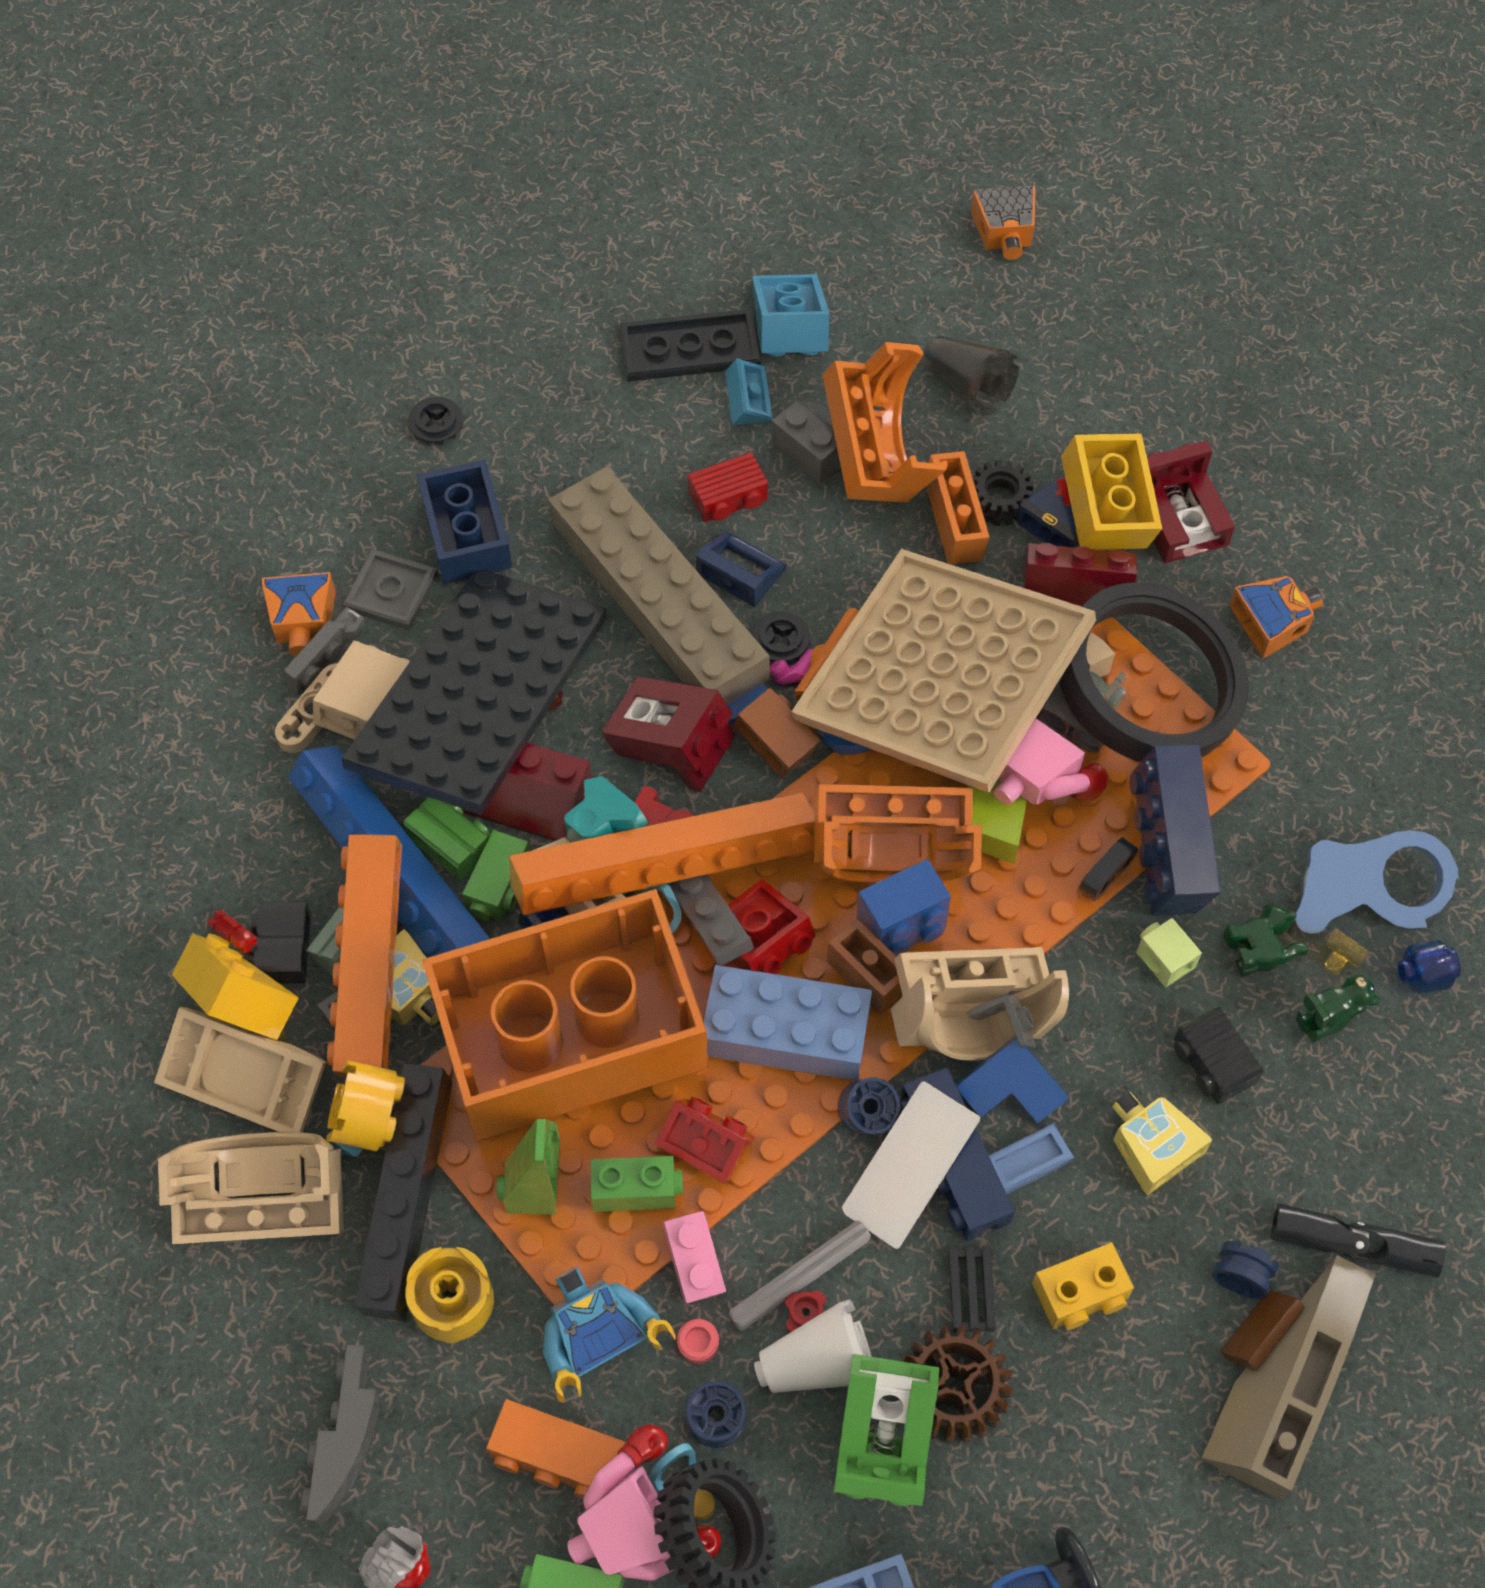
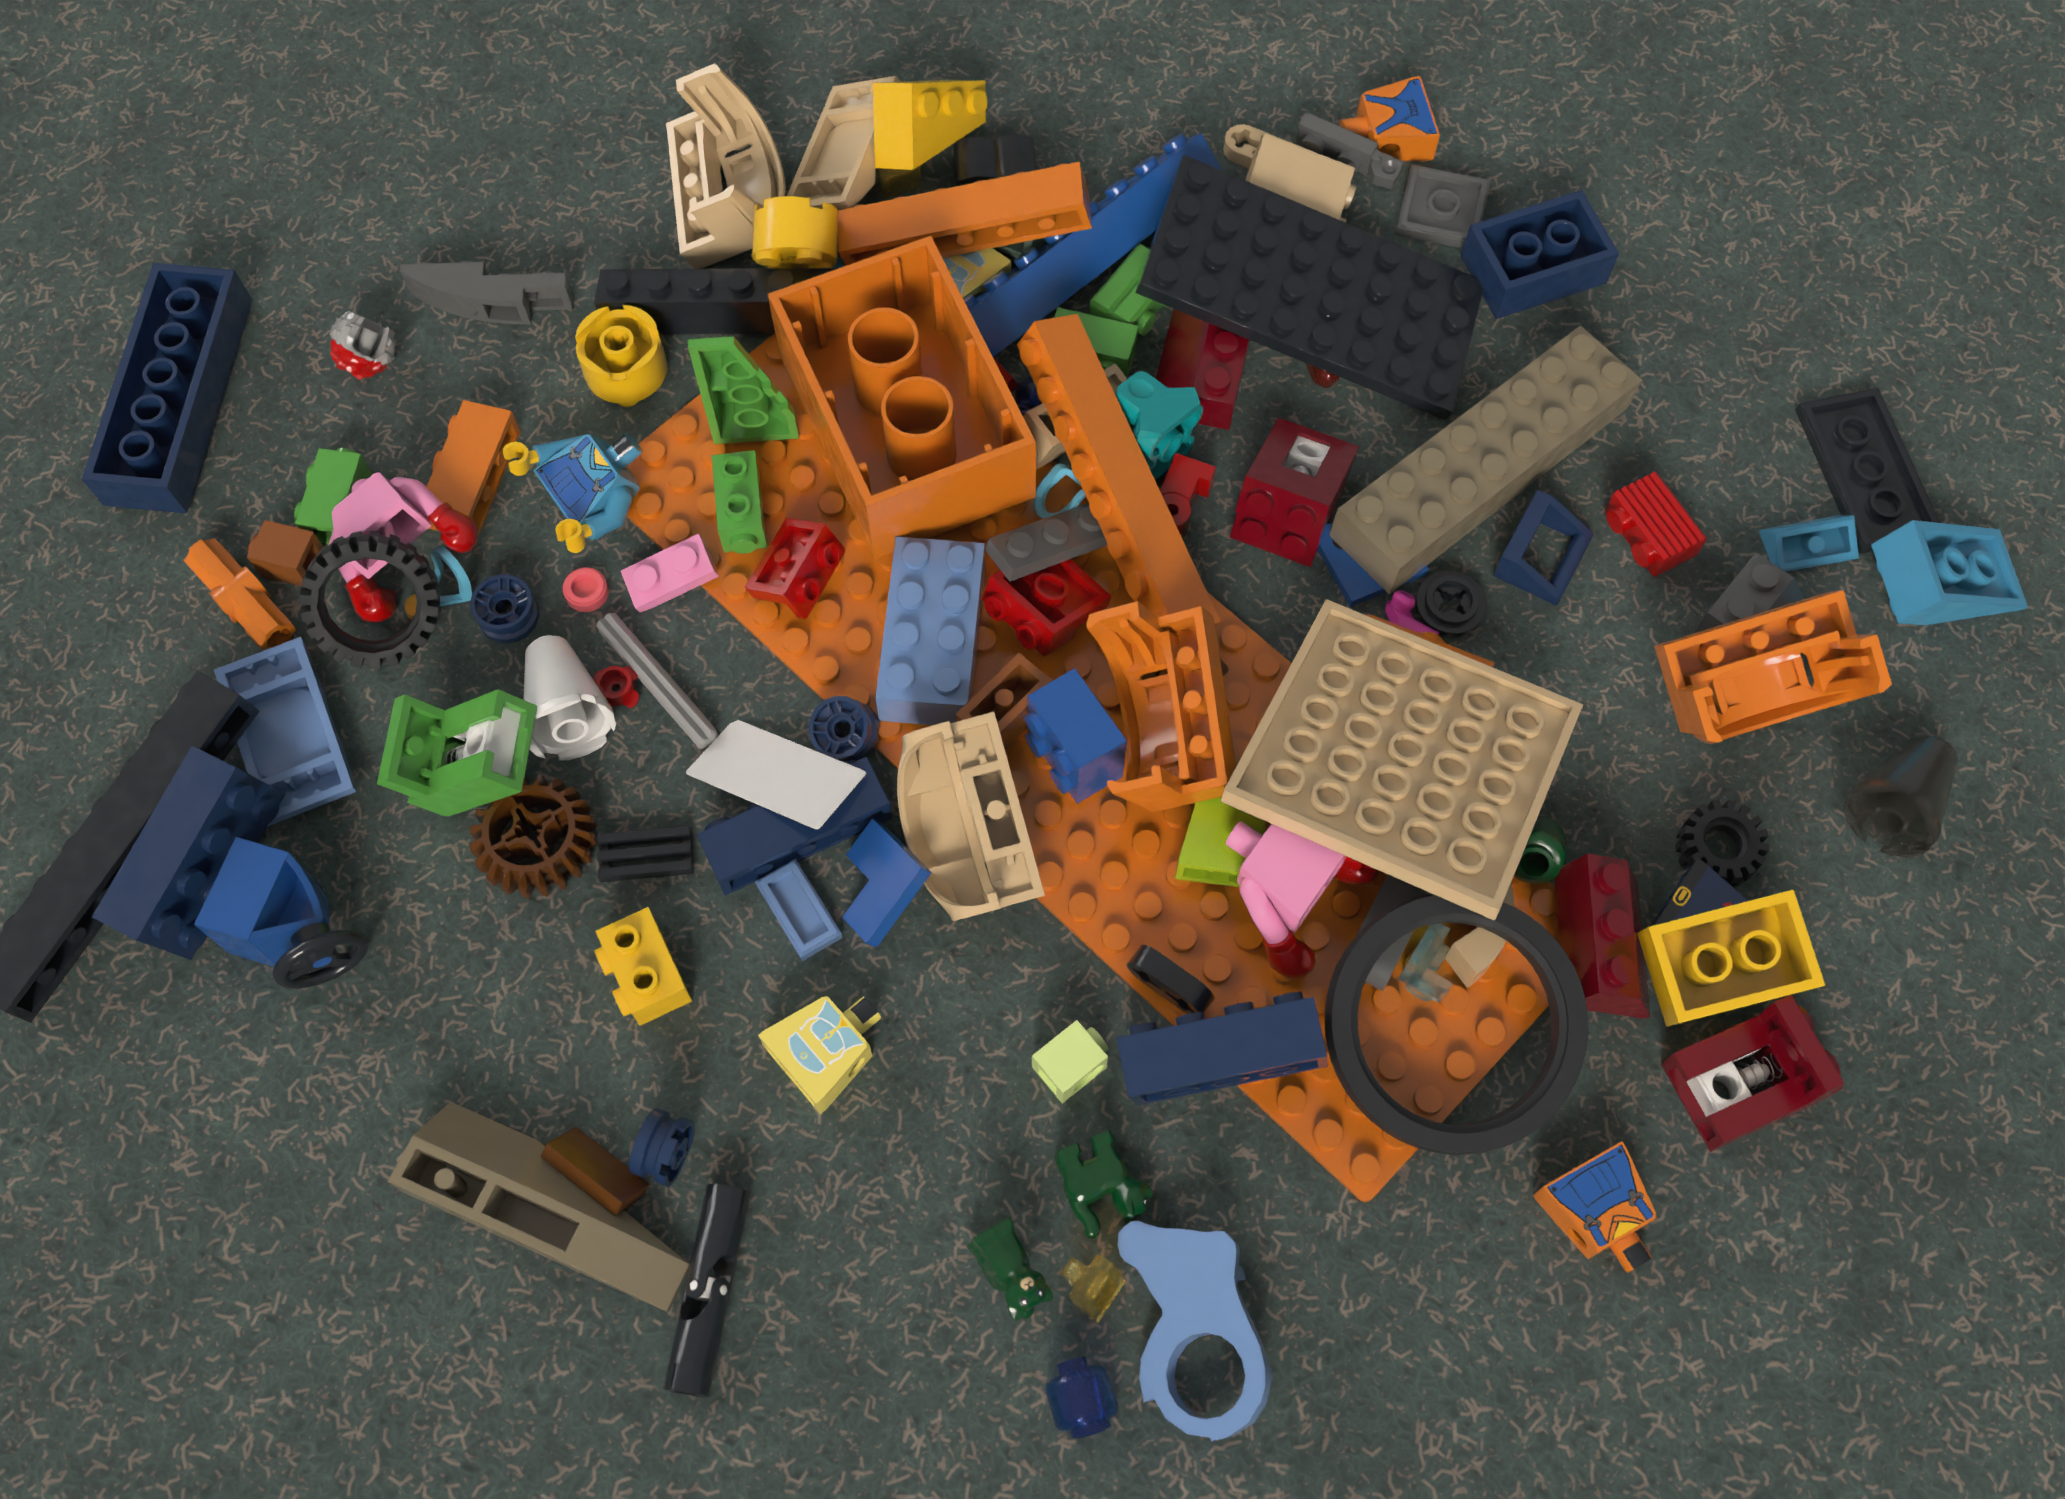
camera: 85 degrees right, 5 degrees up
(232, 931) = (998, 120): red axle -> none
(435, 409) = (1673, 205): black gear -> none
(775, 733) = (1303, 593): dark orange brick -> none
(958, 510) = (1678, 782): orange brick -> none
(1019, 1016) = (943, 865): dark grey bracket -> none
(1217, 1056) = (936, 1119): black brick -> none

